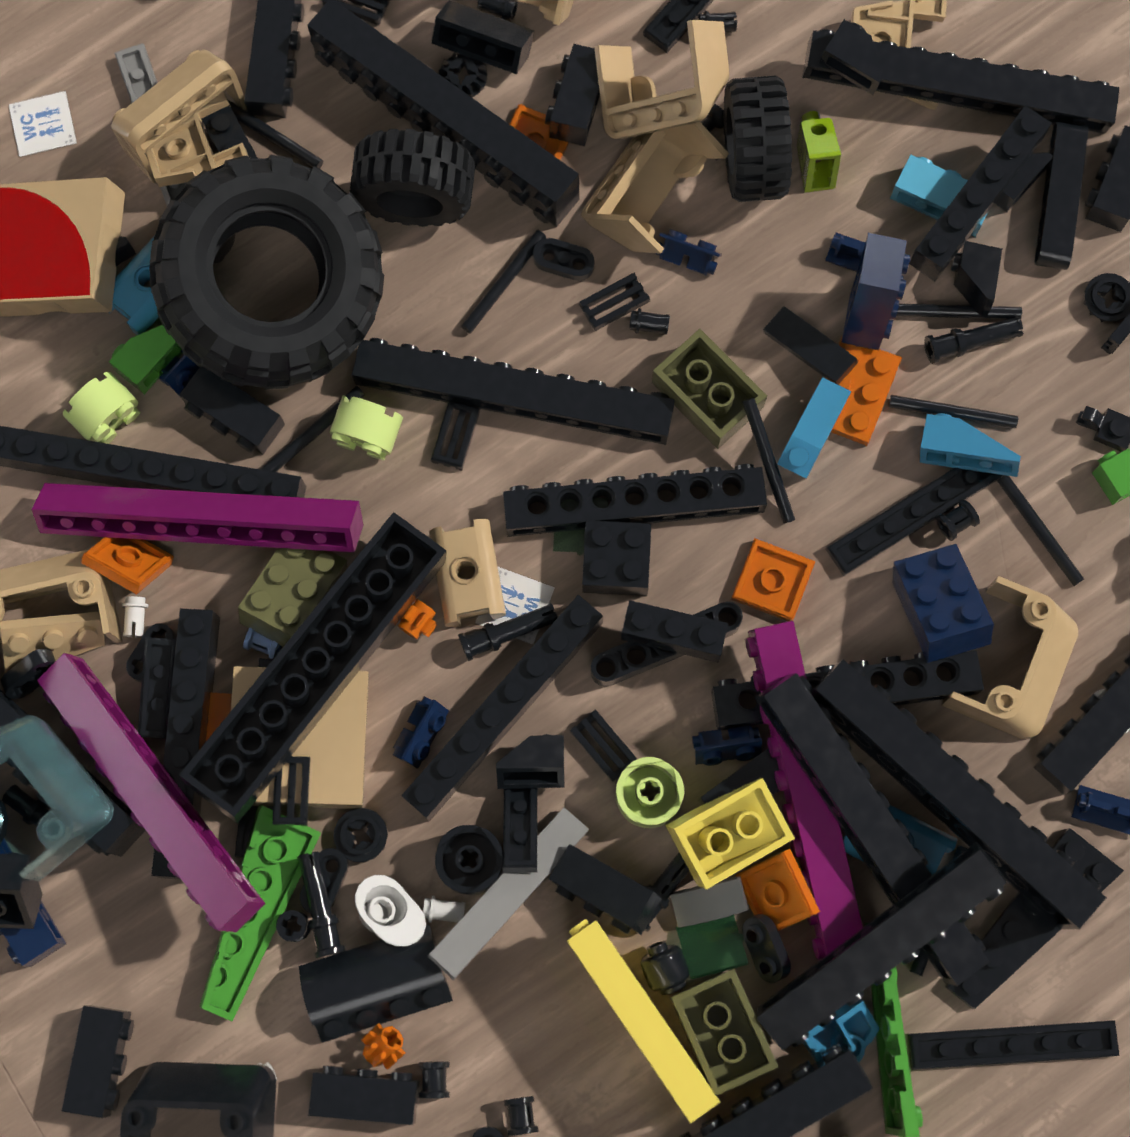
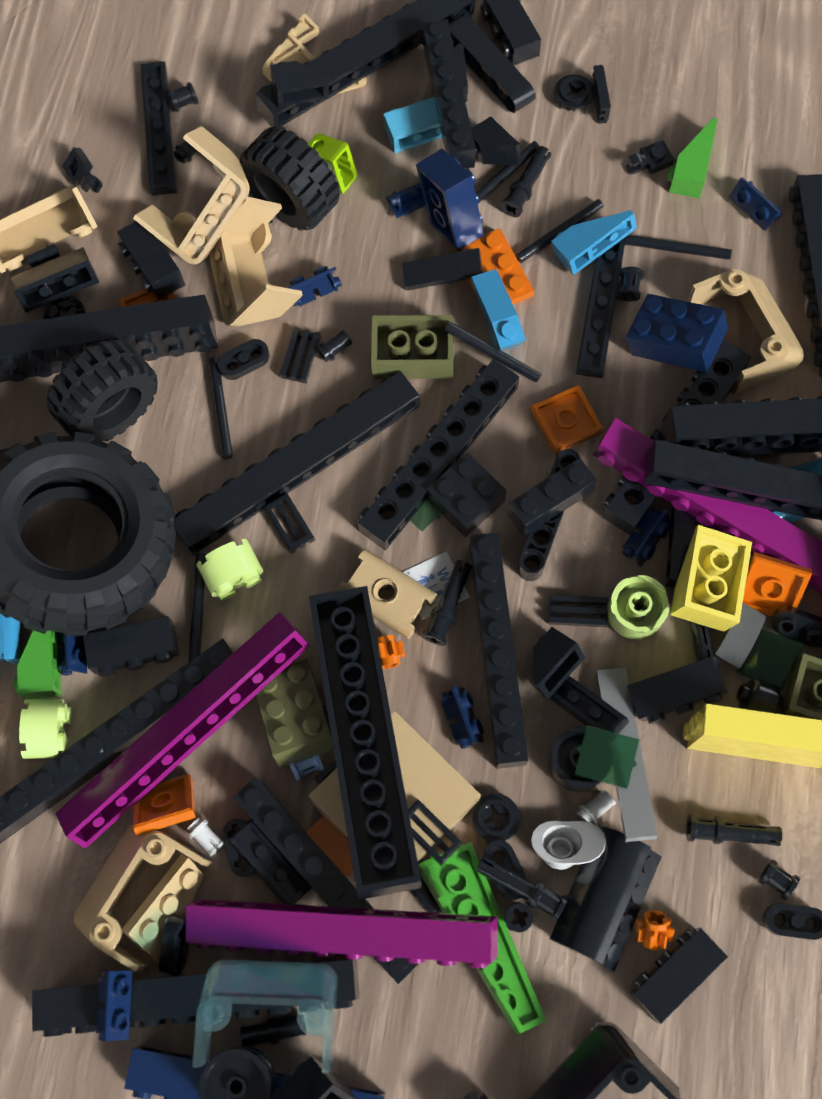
camera: 45 degrees left, 5 degrees down
(434, 1079) = (706, 916): black bush -> none
(486, 879) = (607, 757): none -> clear green piece
(518, 1030) = (718, 831): none -> black pin

